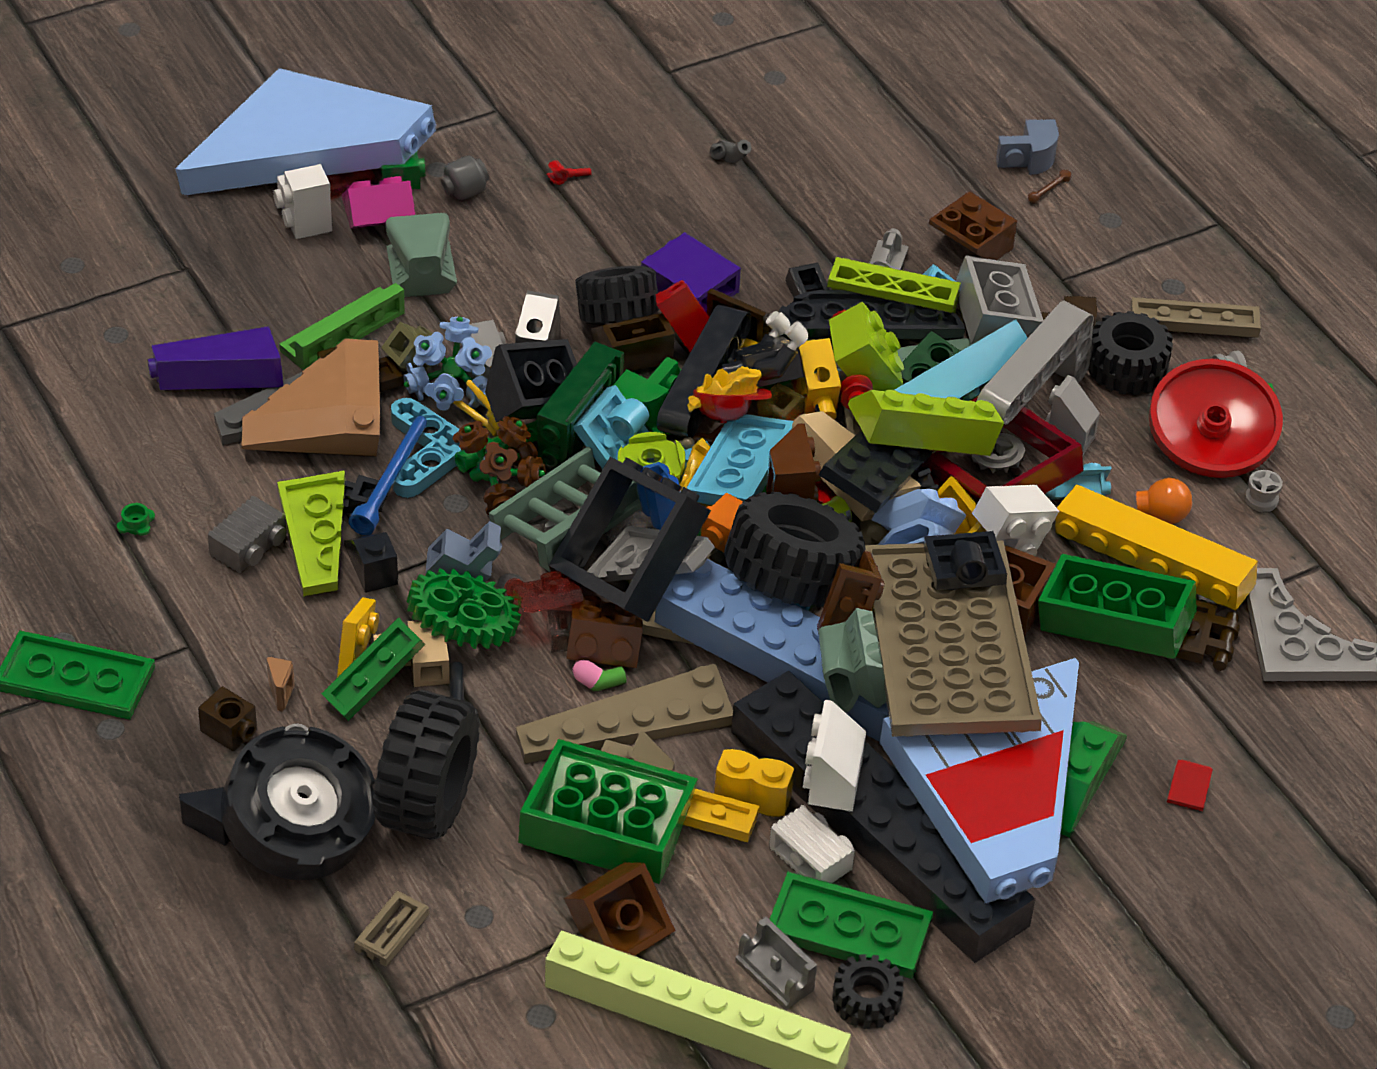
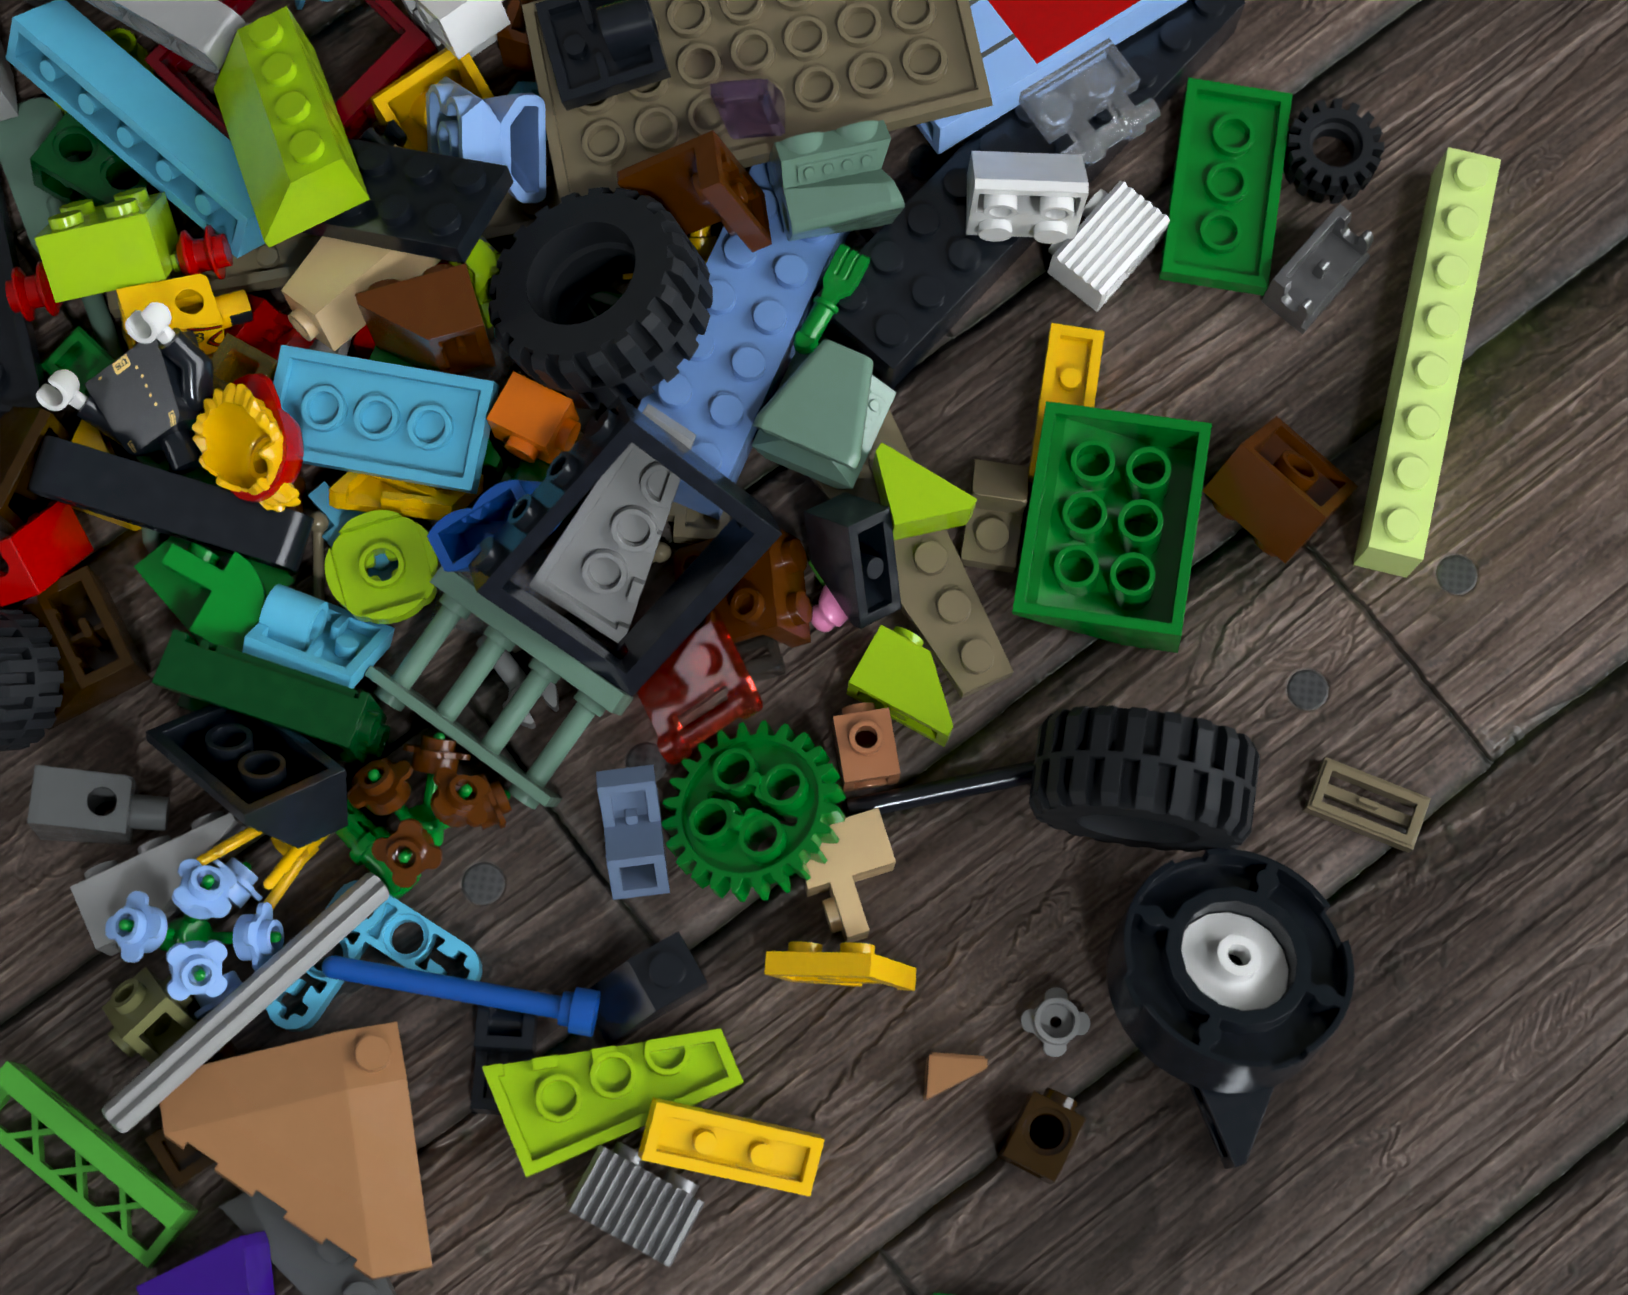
camera: 100 degrees left, 30 degrees up
(266, 574) = (731, 1147): none -> yellow plate
(373, 668) = (915, 922): green plate -> none
(405, 374) = (245, 1003): none -> light grey axle
(491, 672) = (865, 747): none -> nougat brick
(526, 696) = (903, 677): none -> lime slope
(612, 673) = (855, 556): none -> black slope
(647, 702) = (917, 497): none -> lime slope
(706, 662) = (824, 415): none -> sand green piece
(755, 781) = (1010, 334): yellow brick -> none
(793, 676) = (838, 282): none -> green piece
(901, 607) = (750, 108): none -> clear purple slope
(910, 811) = (1082, 90): none -> clear plate

